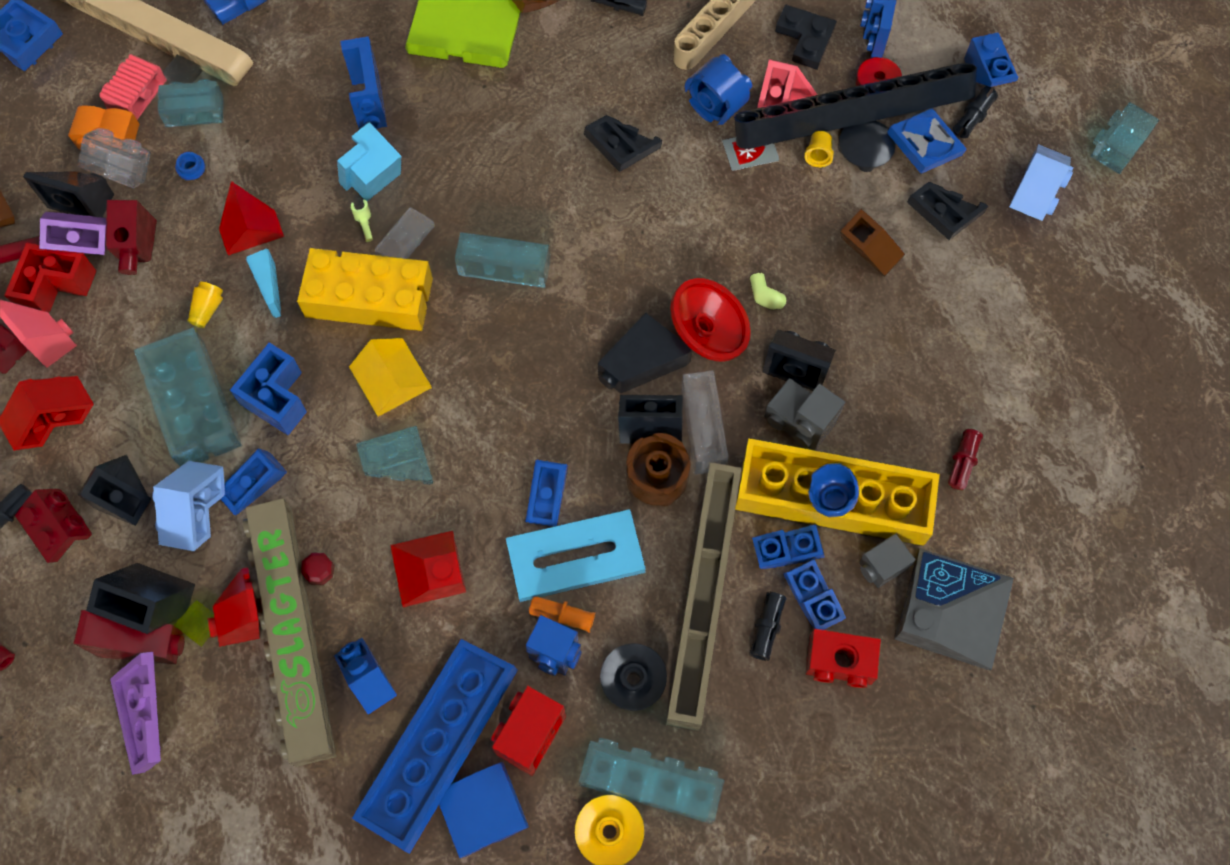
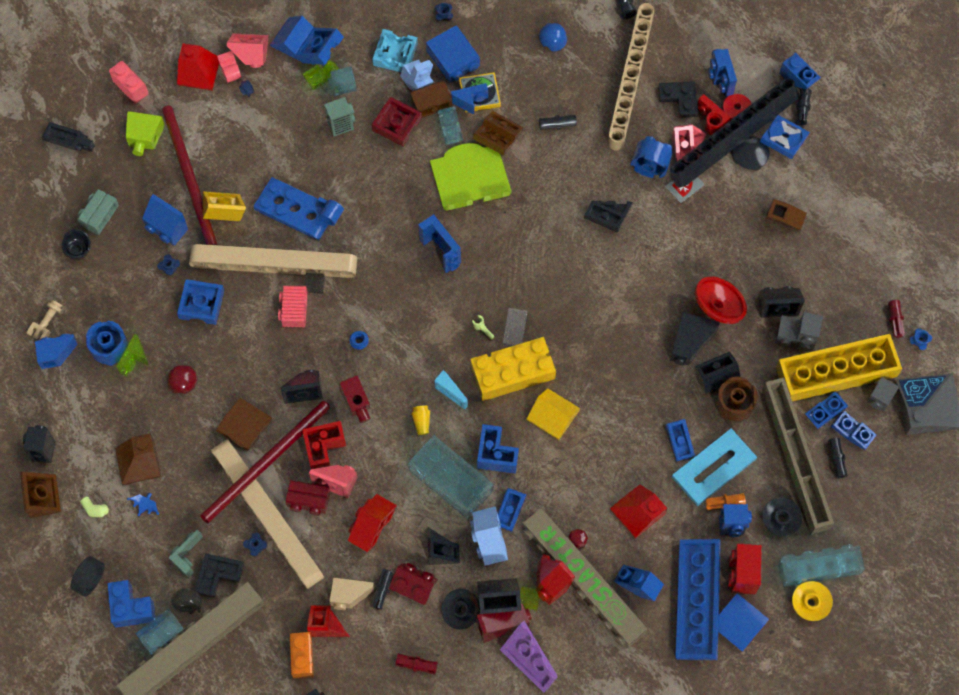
camera: 25 degrees left, 0 degrees up
(73, 233) = (327, 411): medium lavender brick -> none
(79, 587) = (452, 609): none -> black dish
(89, 118) = (293, 340): orange brick -> none
(114, 158) = (316, 355): clear brick -> none
(190, 103) = (336, 300): clear light blue brick -> none
(247, 221) = (415, 359): red slope -> none
(369, 163) = (473, 290): medium azure plate -> none
(396, 456) = (584, 457): clear light blue wing -> none
(502, 259) = (582, 316): clear light blue brick -> none
(704, 420) = (749, 361): clear brick -> none
(764, 295) = (740, 271): yellowish green arm -> none
(819, 151) = (726, 168): yellow piece -> none
(833, 490) = (841, 368): blue hair -> none
(838, 69) = (713, 114): none -> red plate
(860, 650) = (893, 448): red brick -> none
(945, 209) = (815, 175): black wing -> none
(994, 499) = (926, 337): none -> blue plate
(1041, 182) = (863, 134): light blue brick -> none
(1124, 137) = (895, 88): clear light blue brick -> none

